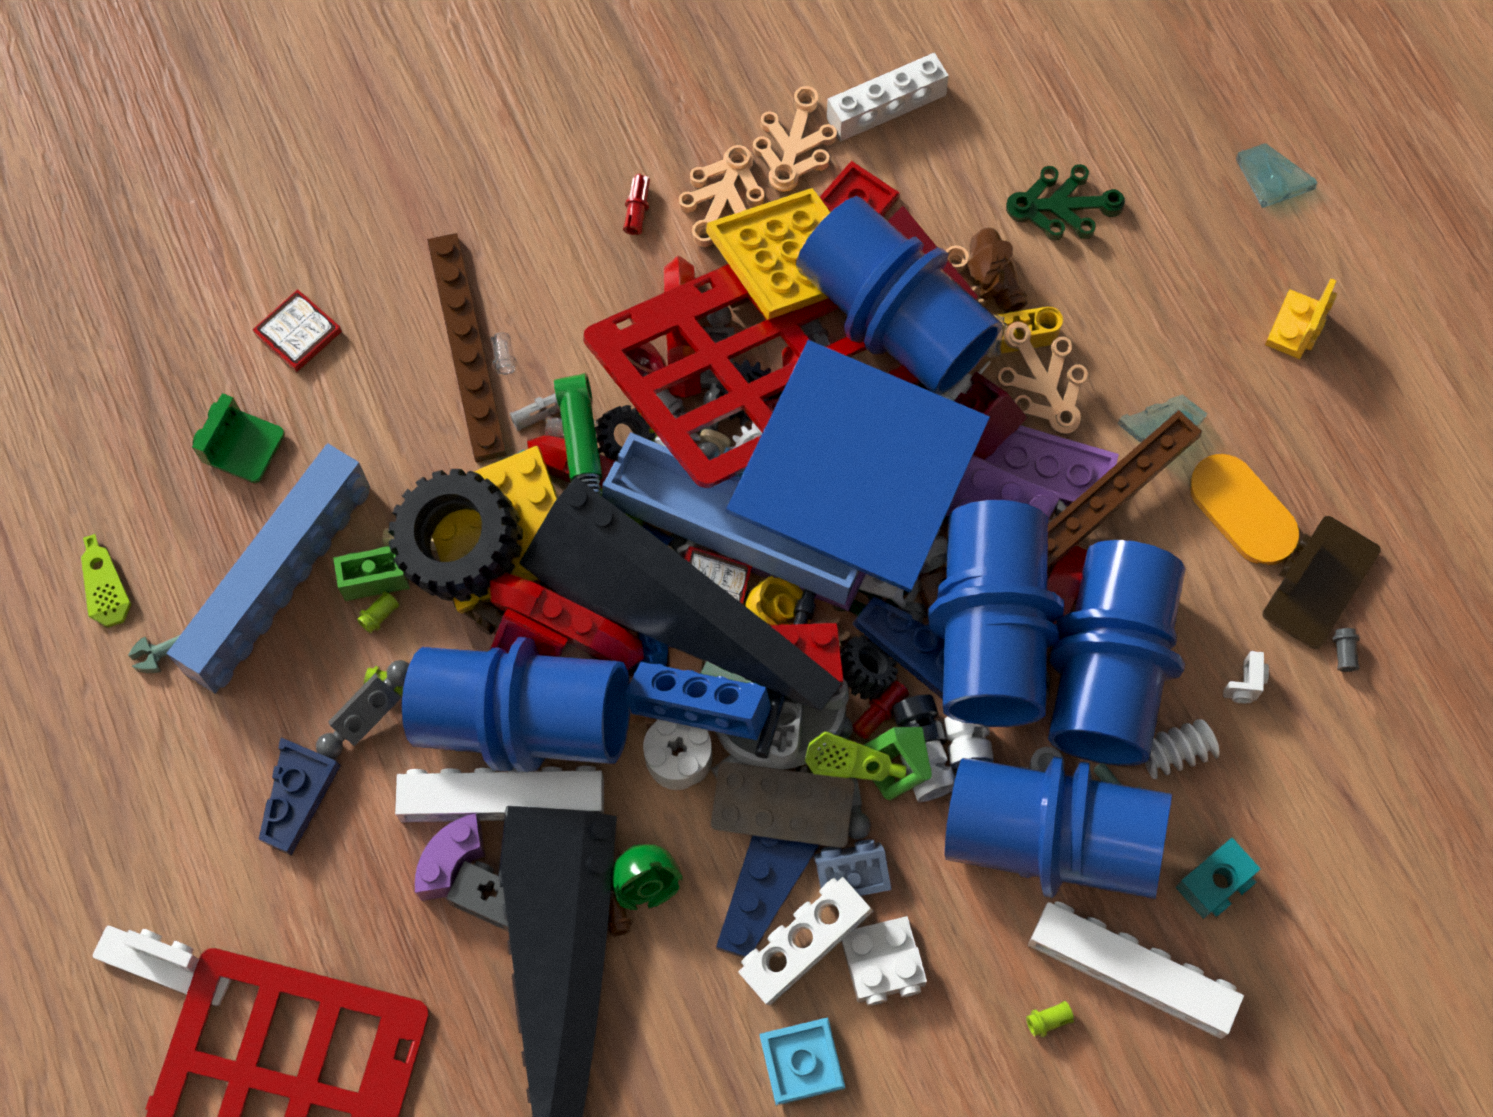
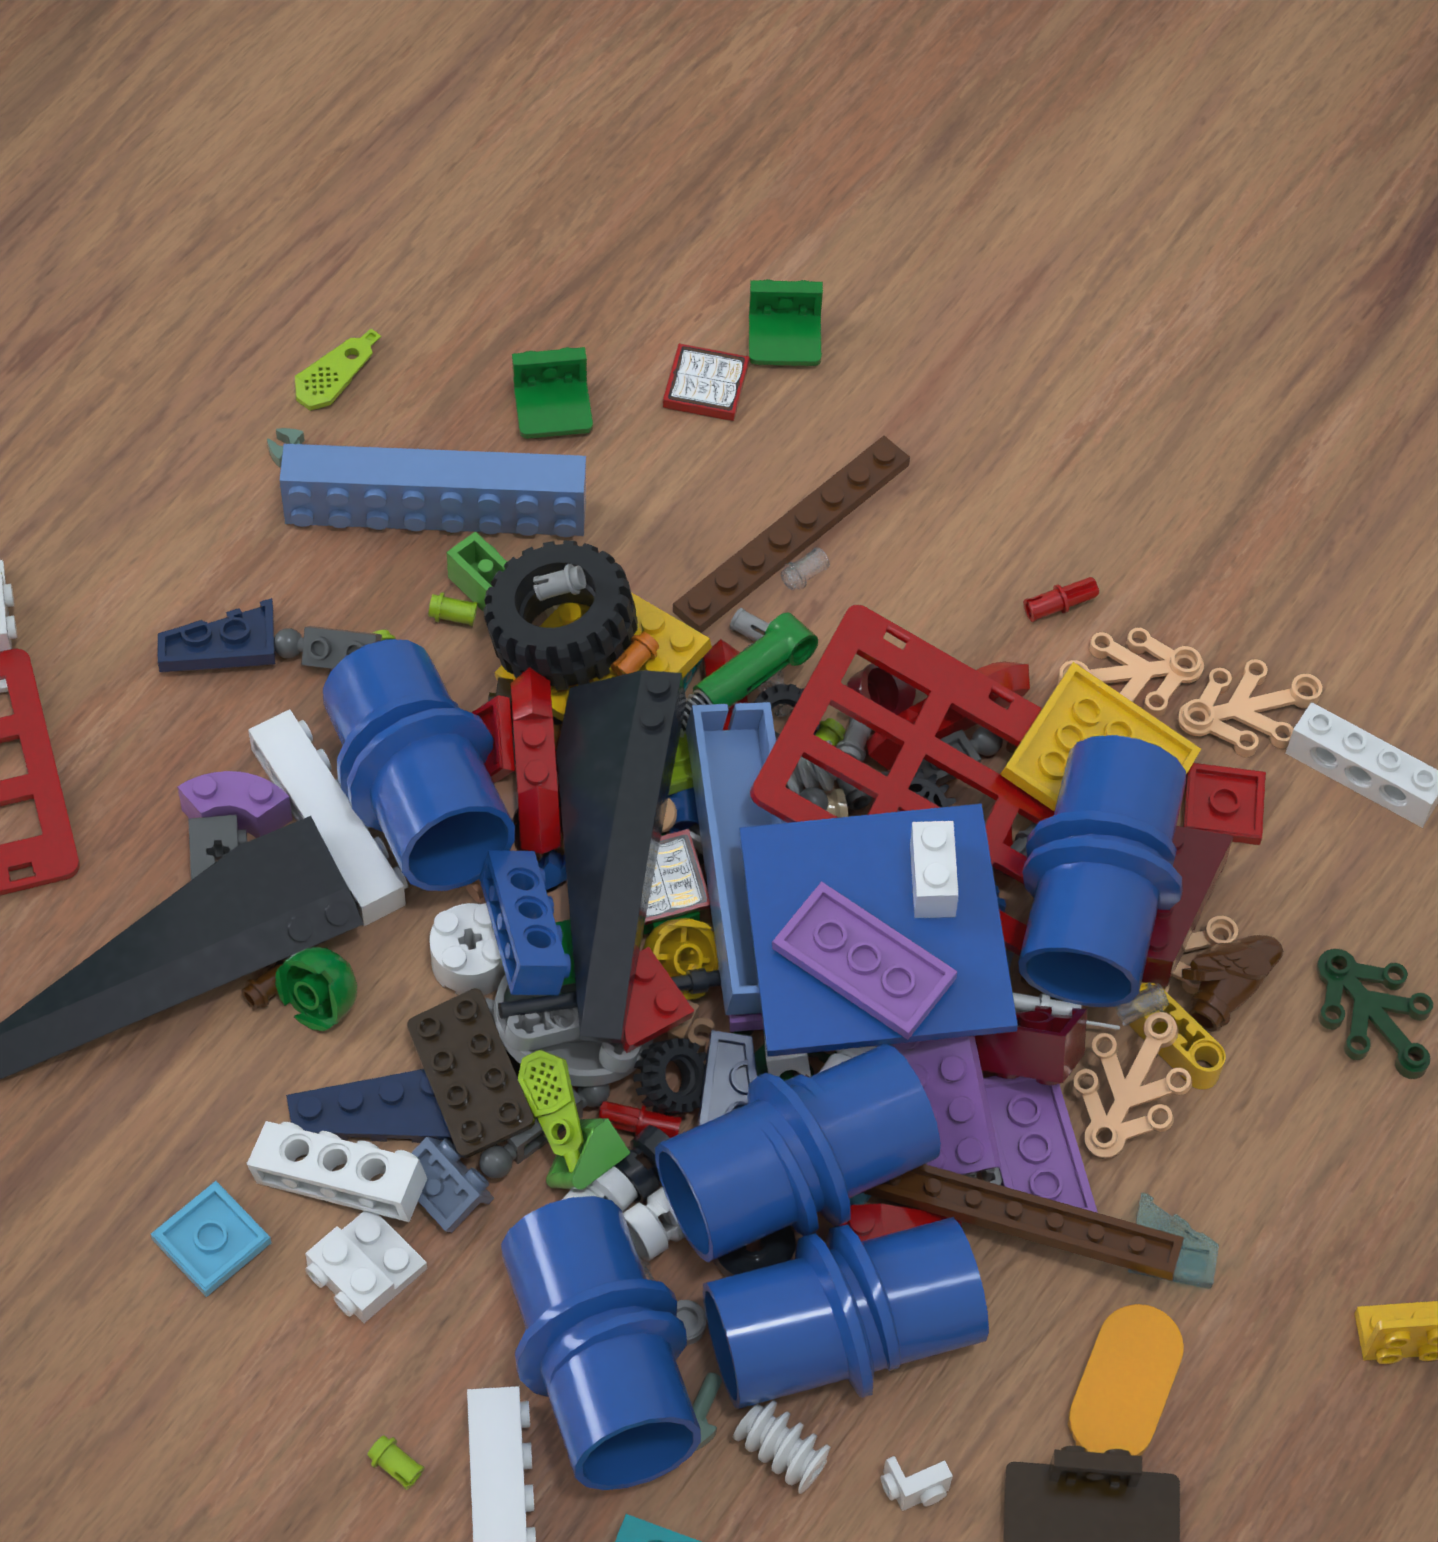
camera: 55 degrees right, 10 degrees down
(287, 249) = (785, 322): none -> green bracket
(444, 517) = (557, 583): none -> light grey pin
(524, 503) = (636, 655): none -> orange pin
(848, 398) = (934, 869): none -> white brick
(886, 484) = (864, 960): none -> medium lavender plate

